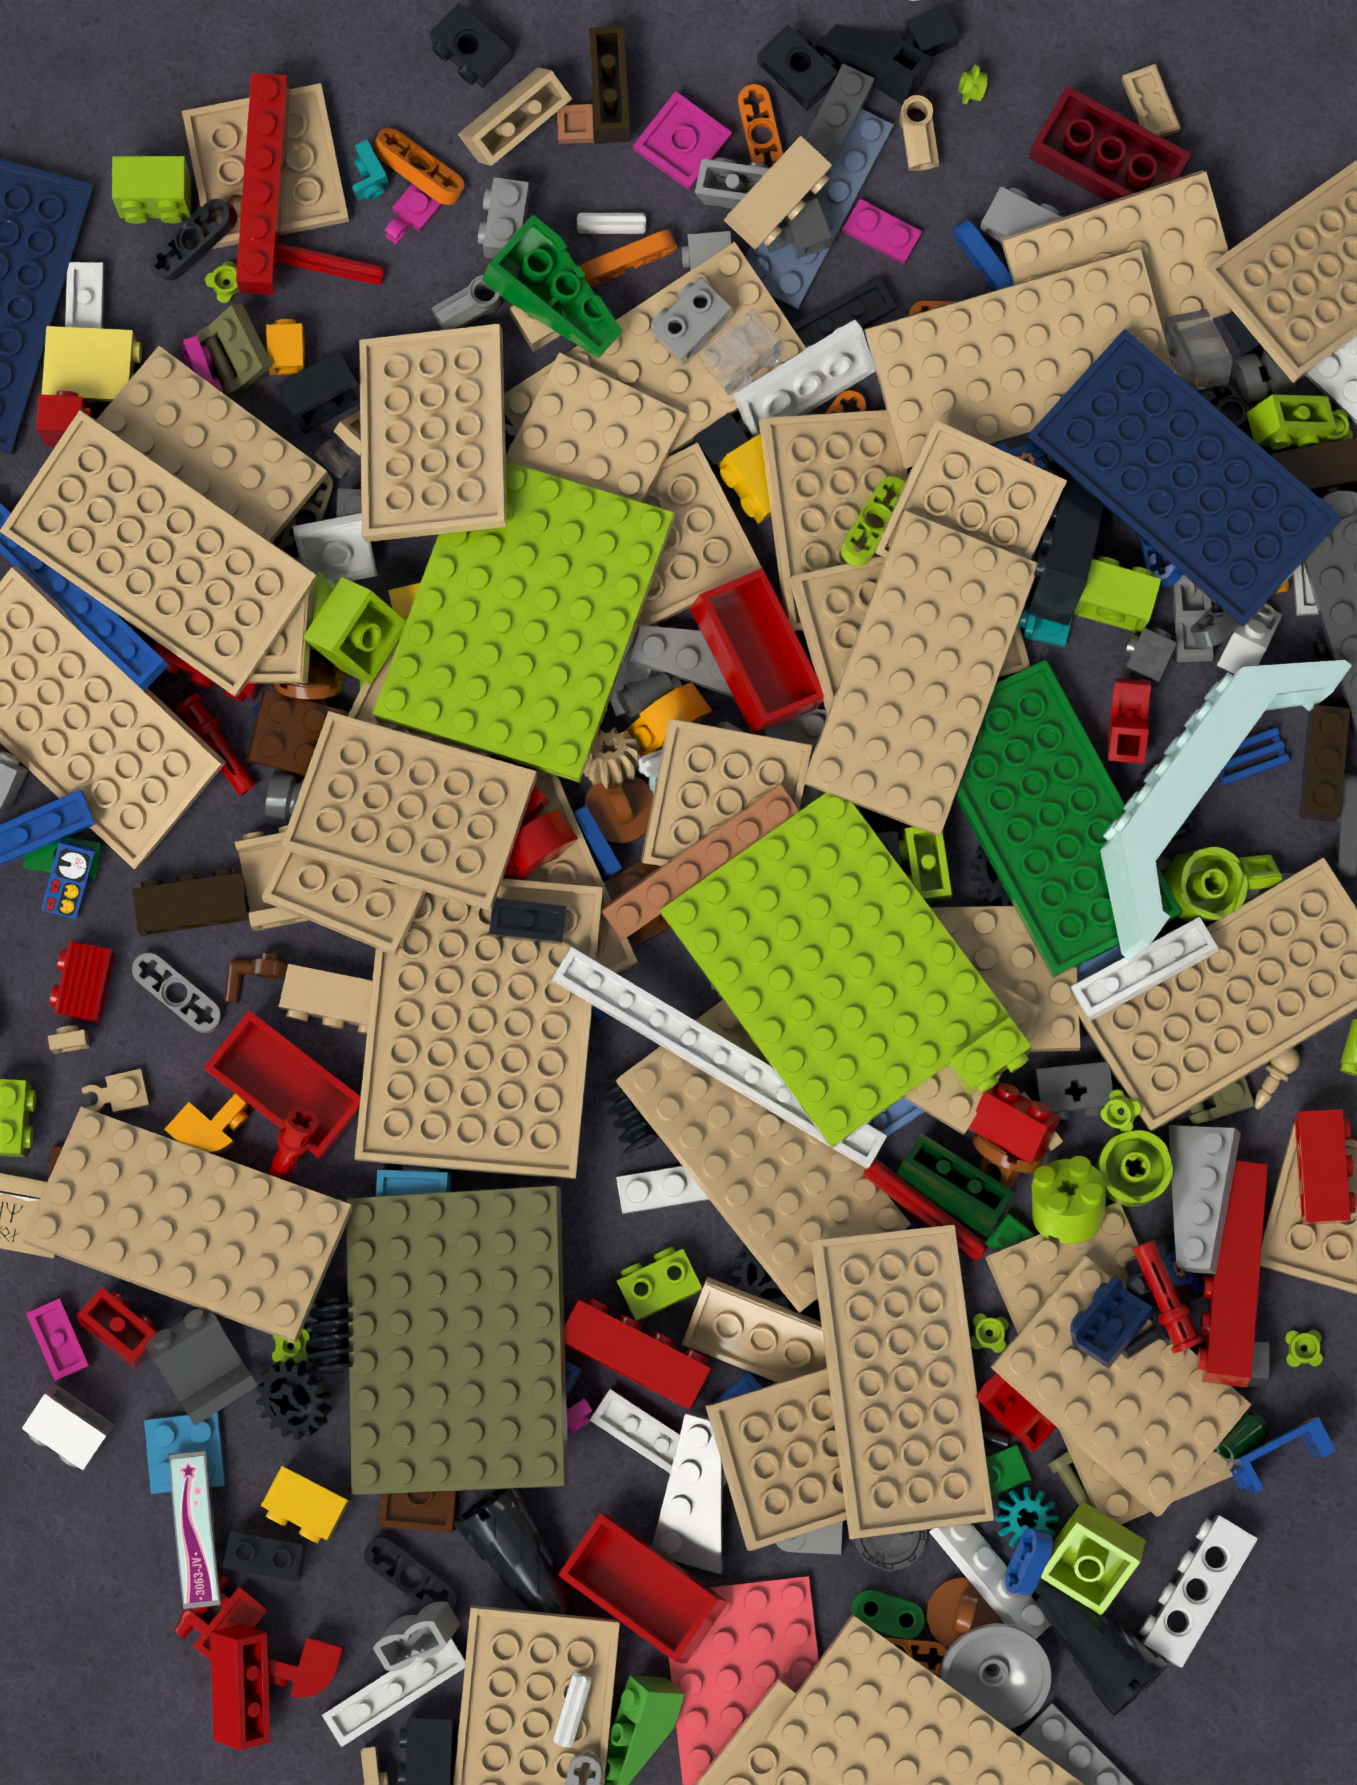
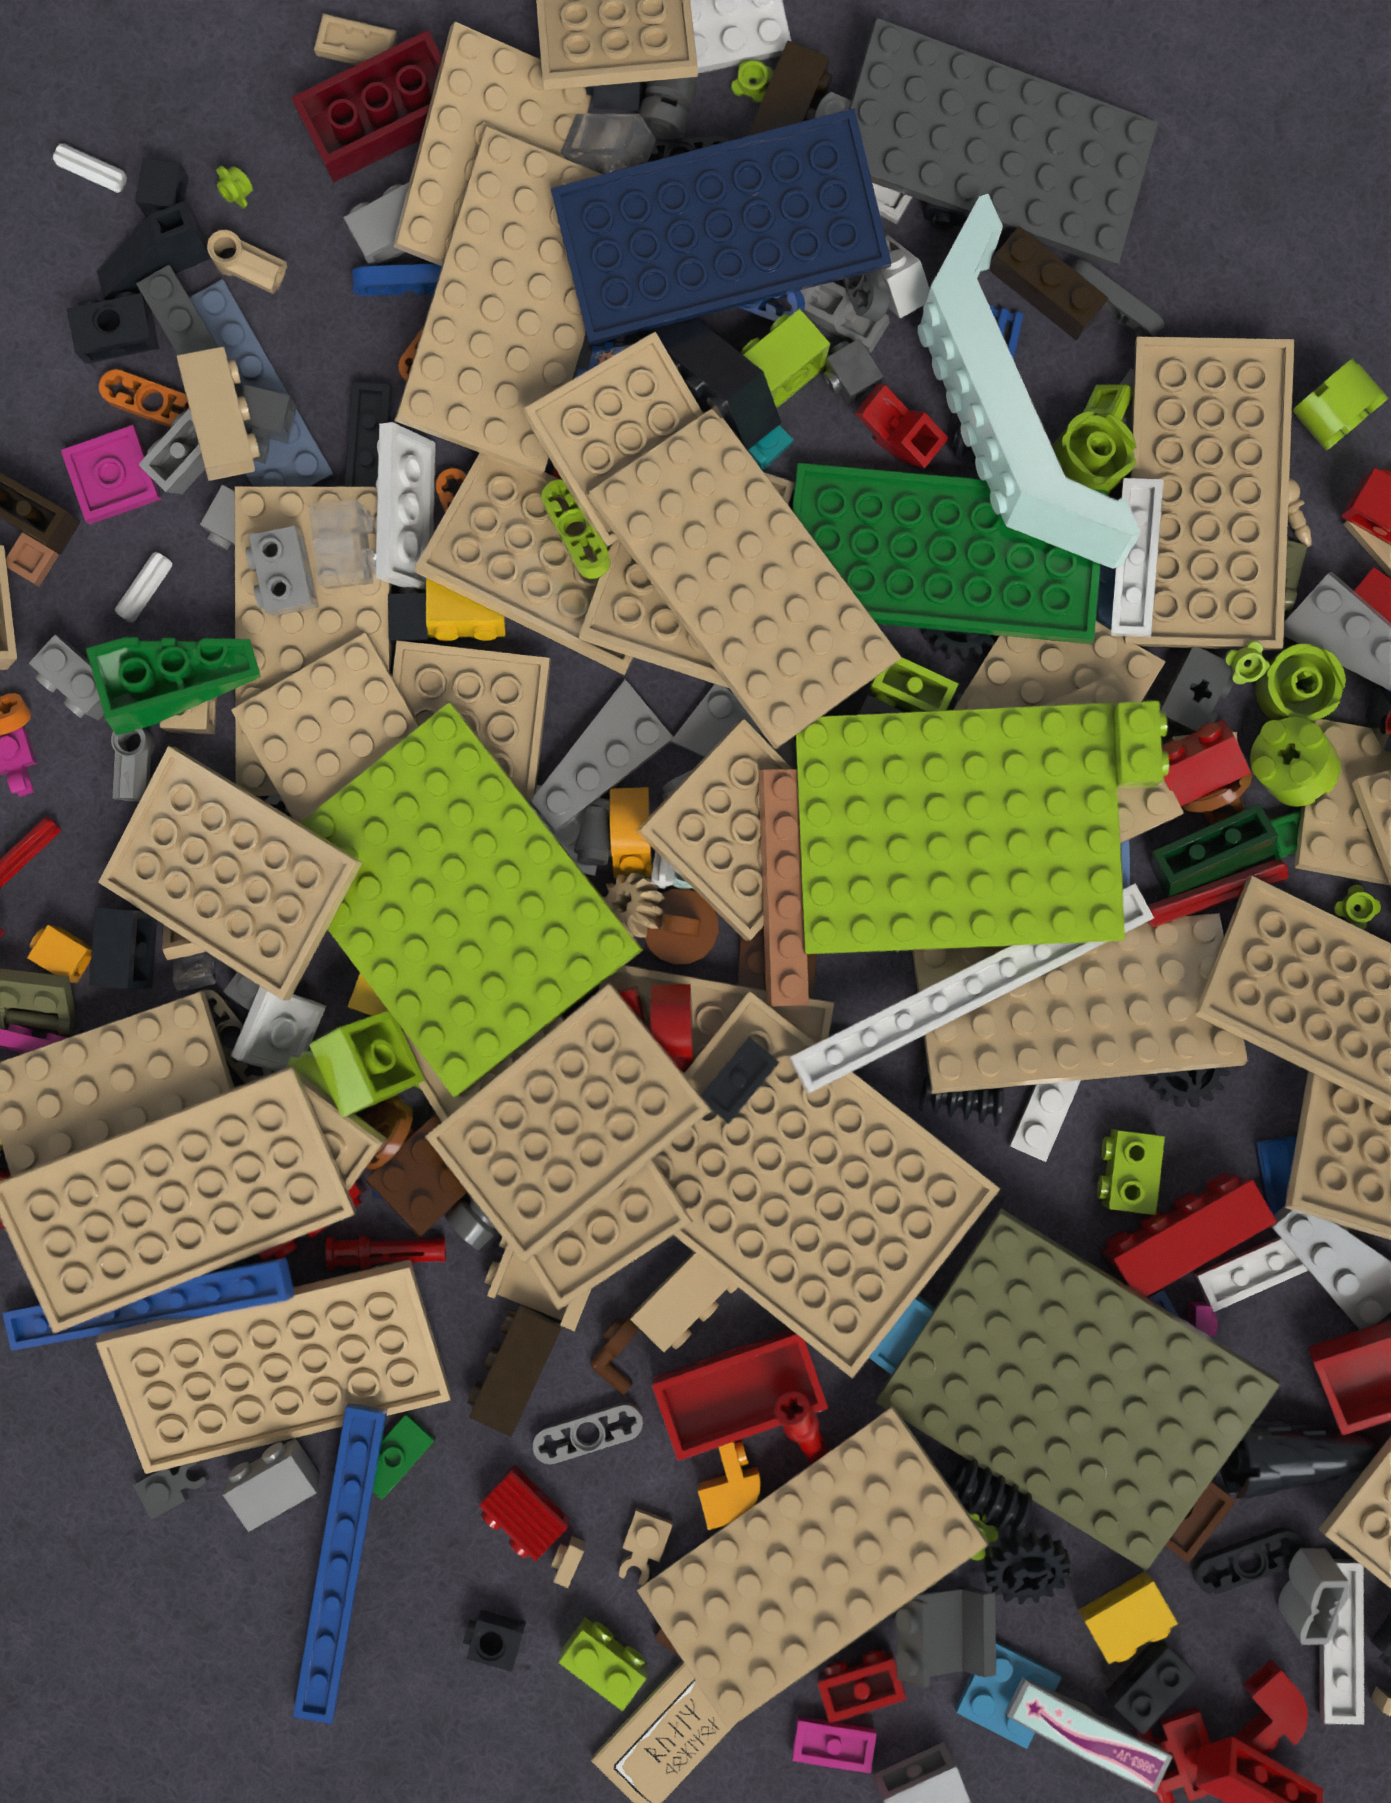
camera: 55 degrees left, 5 degrees up
(67, 879) = (420, 1468): tile -> none
(600, 849) = (709, 969): blue tile -> none
(633, 254) = (185, 587): orange beam -> none
(755, 1334) = (1234, 1113): tan tile -> none
(757, 651) = (625, 711): red piece -> none
(882, 231) = (312, 354): dark pink plate -> none
(1291, 421) = (727, 104): lime brick -> none

